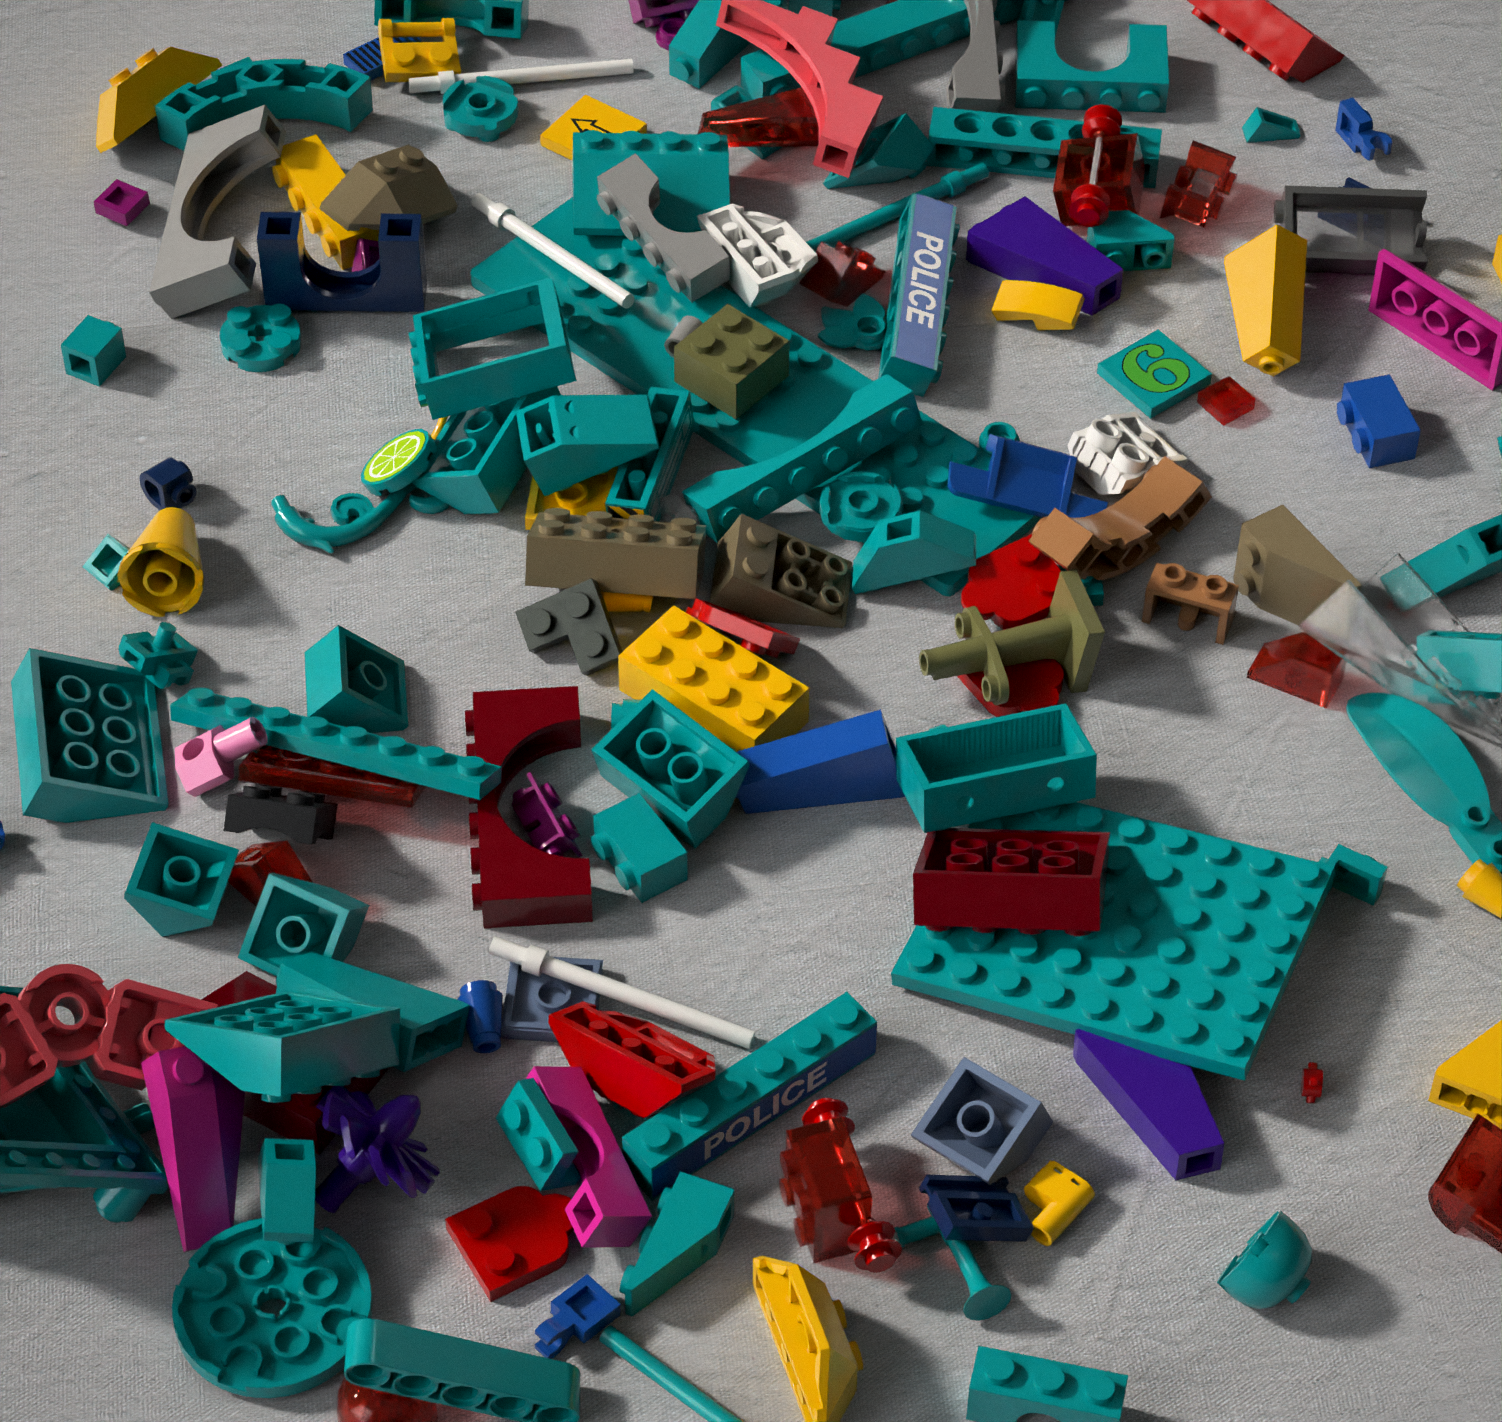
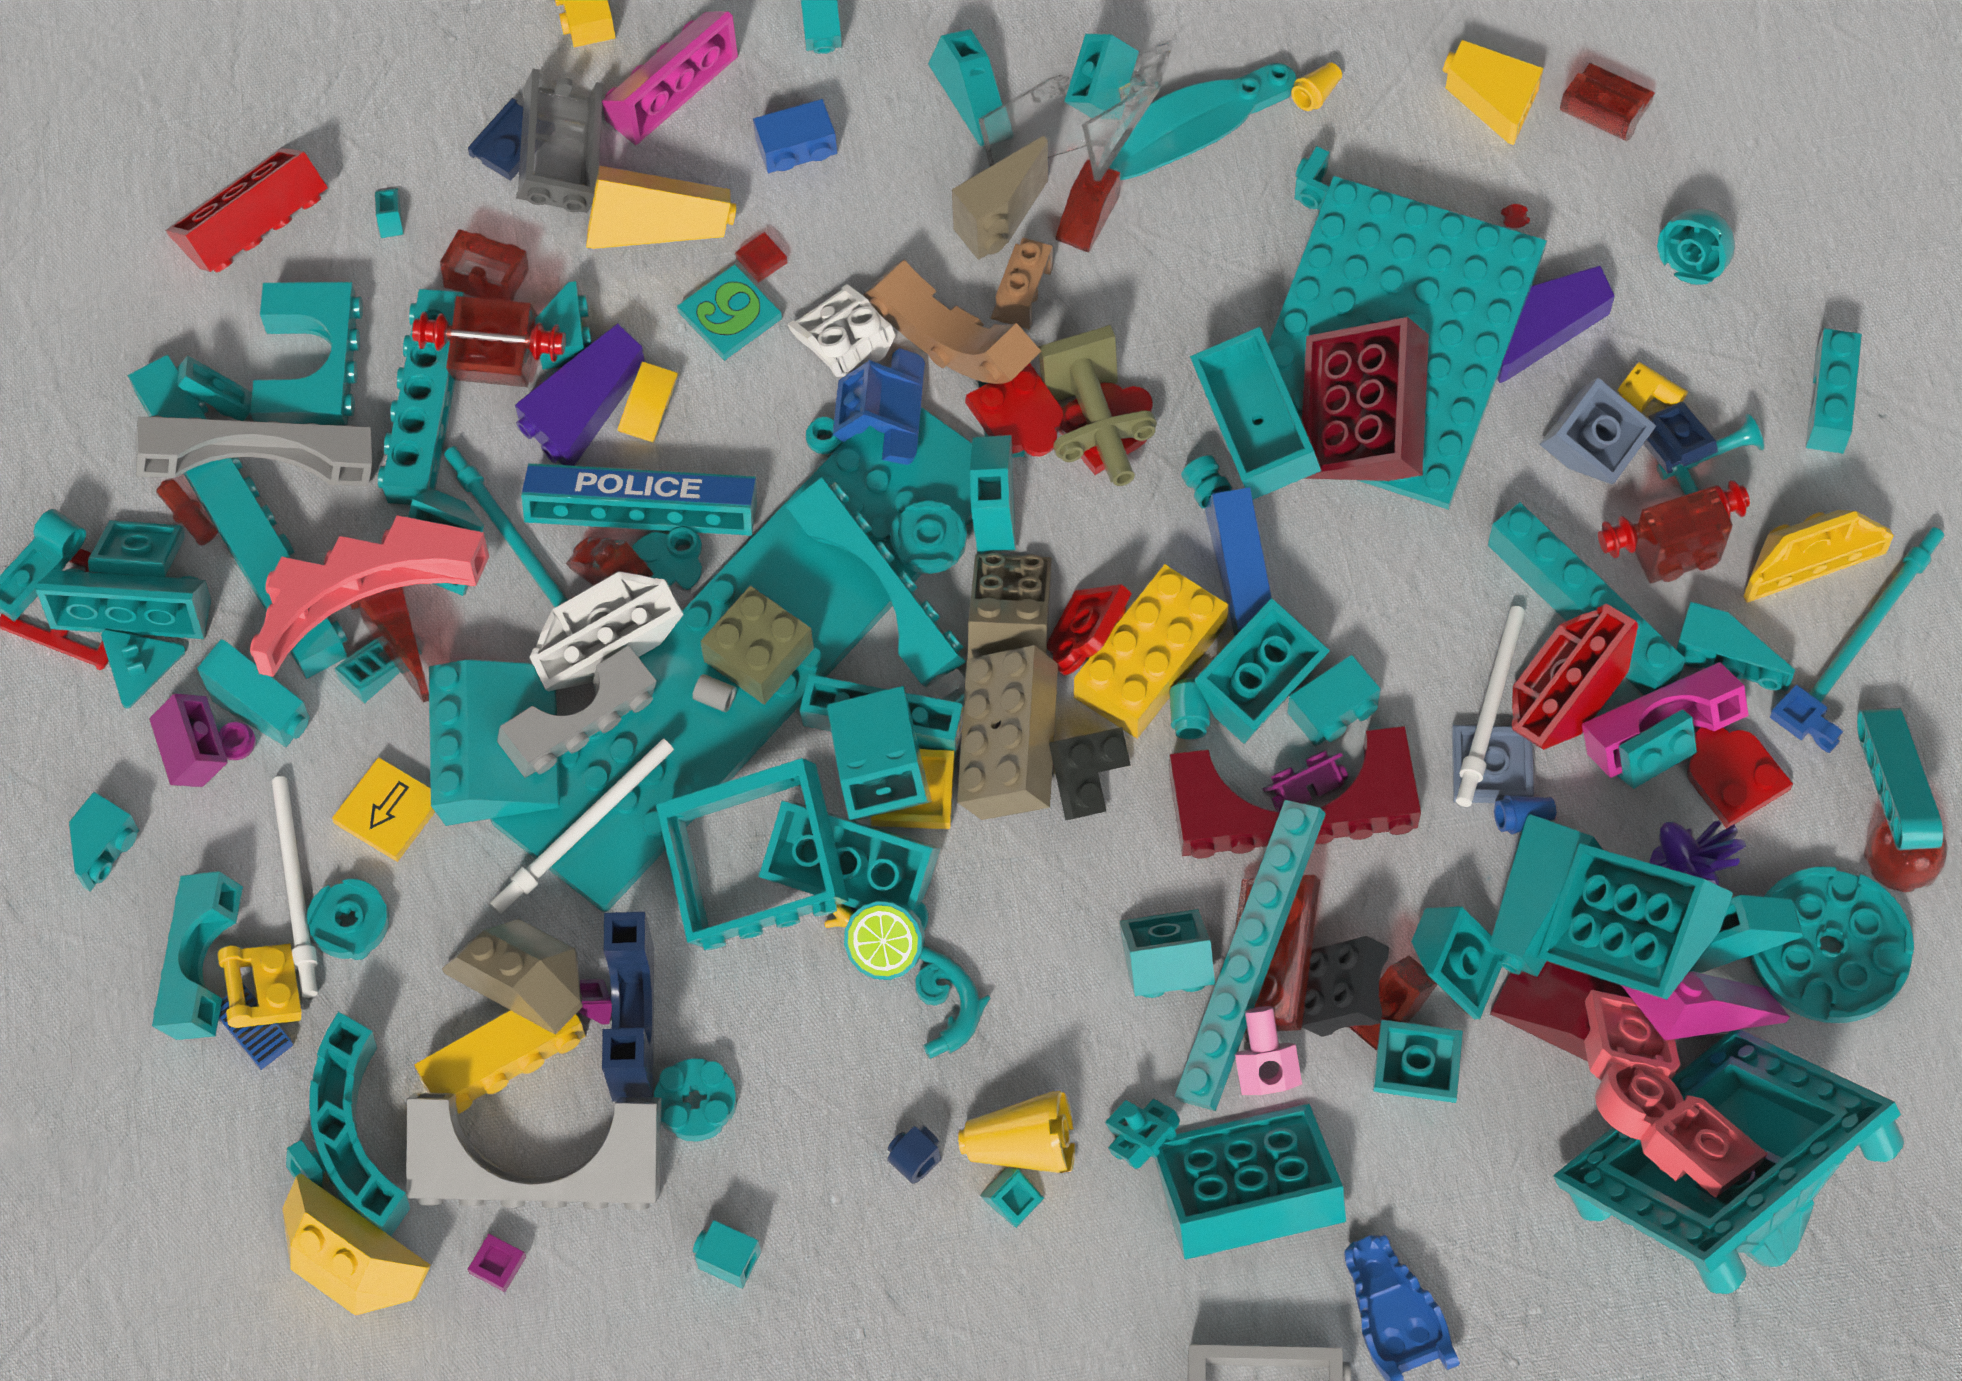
camera: 90 degrees left, 15 degrees up
(1356, 130) = (403, 135): blue plate -> none

